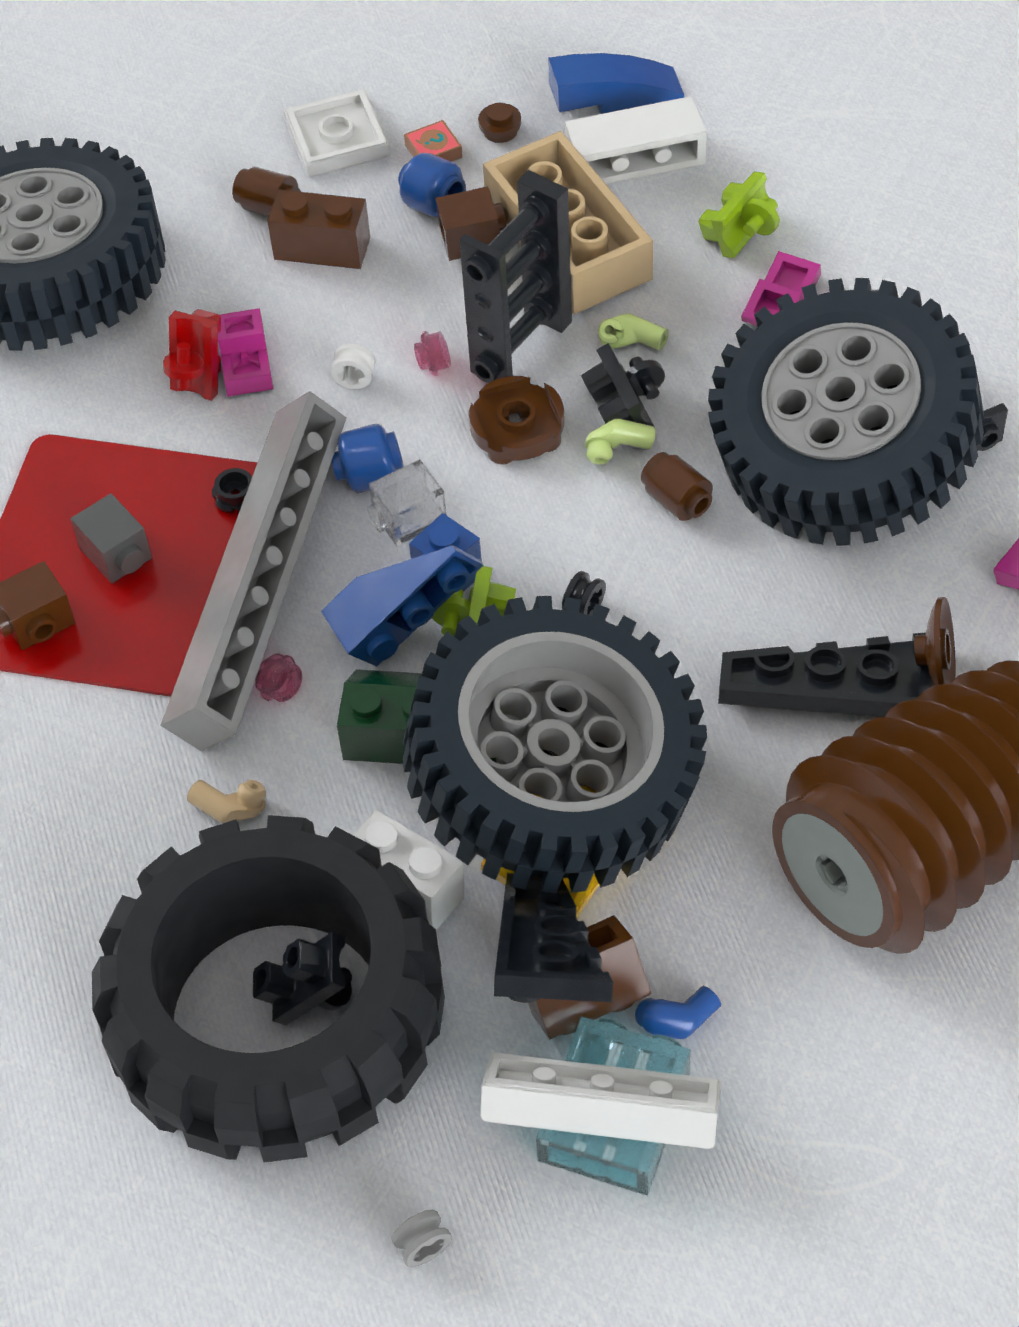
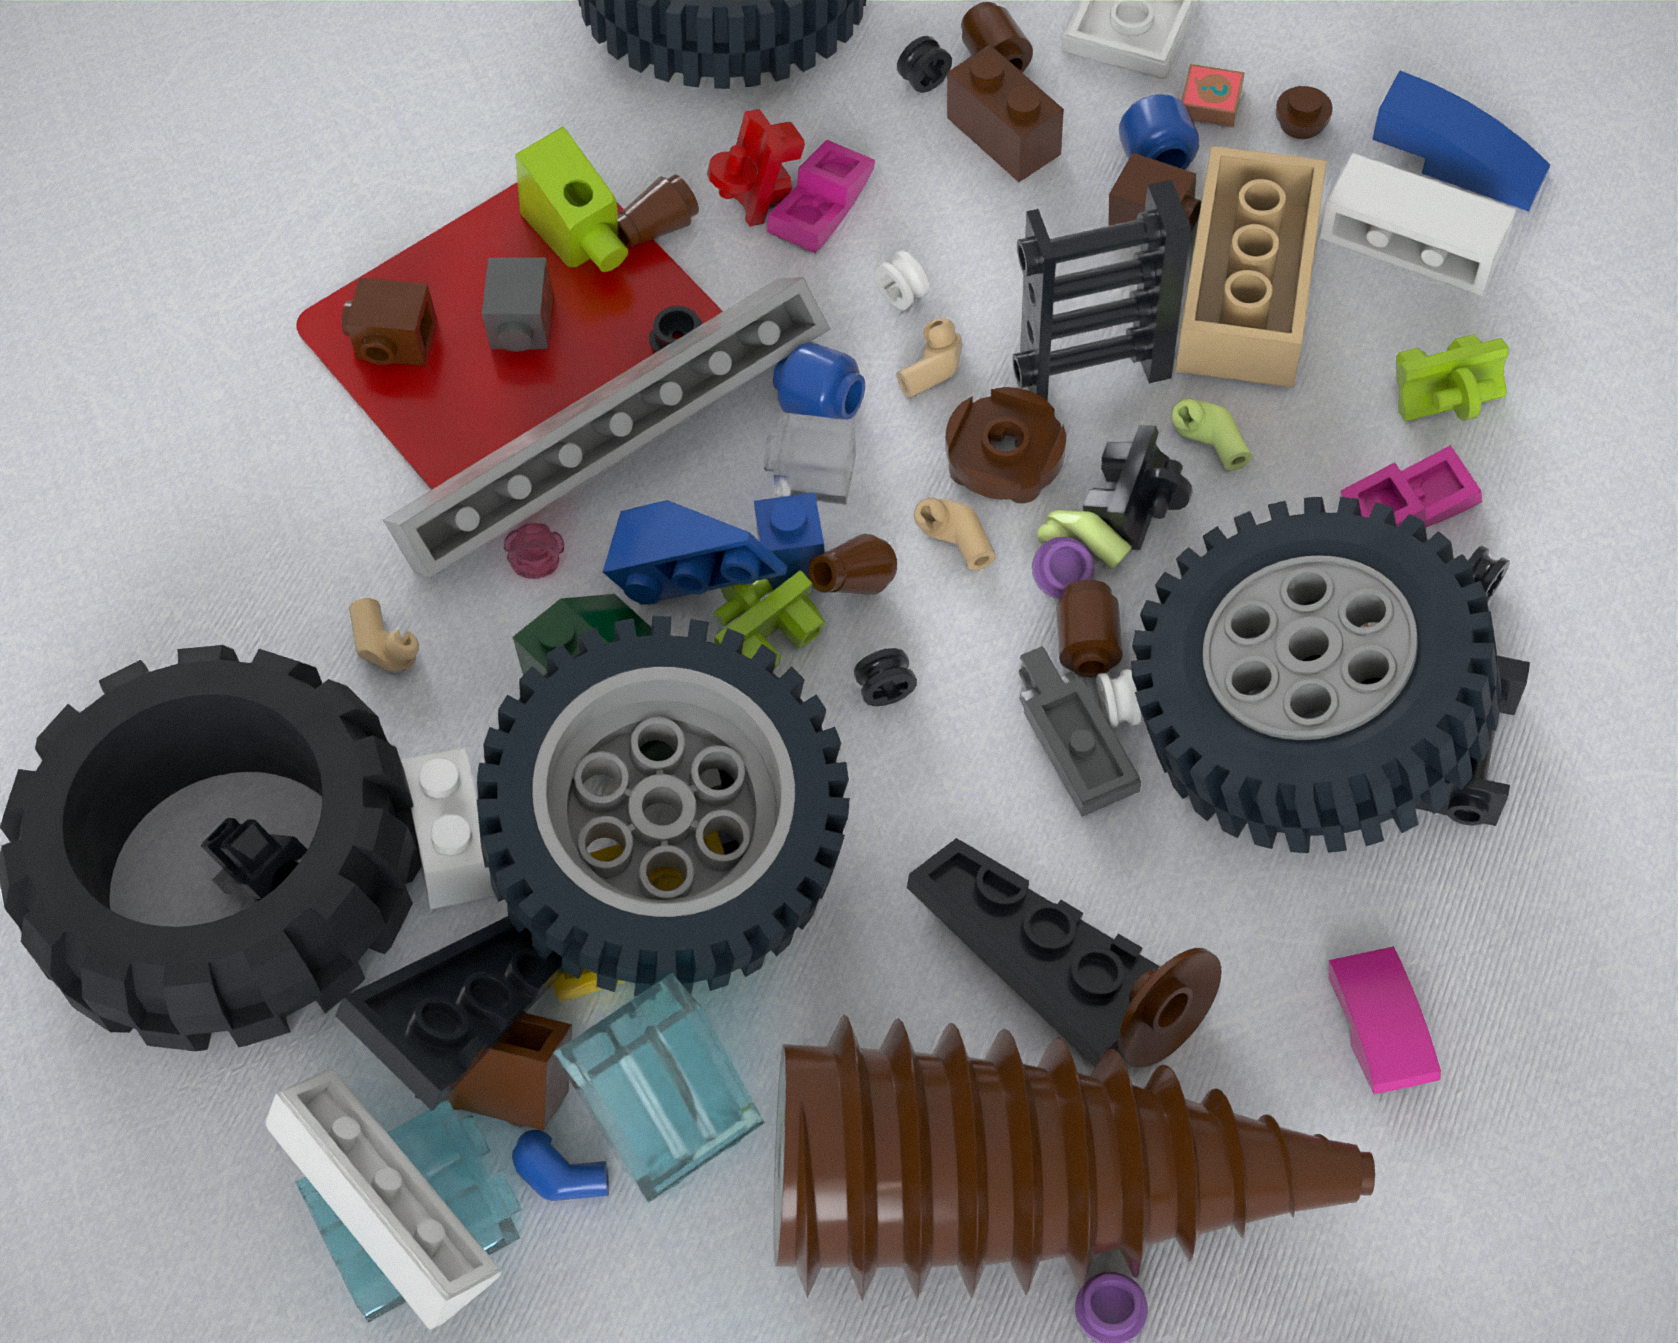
camera: 40 degrees right, 5 degrees up
(89, 453) = (569, 202): none -> lime torso
(146, 425) = (657, 211): none -> reddish brown cone
(233, 232) = (924, 64): none -> black bush
(421, 1238) = (131, 1191): light grey bush -> none
(422, 399) = (938, 362): none -> tan arm
(432, 352) = (993, 317): clear pink plate -> none
(508, 535) = (855, 567): none -> reddish brown cone
(535, 484) = (958, 526): none -> tan arm
(624, 463) = (1060, 564): none -> medium lavender plate
(710, 904) = (660, 1087): none -> clear light blue brick
(727, 549) = (1075, 735): none -> dark grey hinge
(734, 513) = (1118, 698): none -> white bush

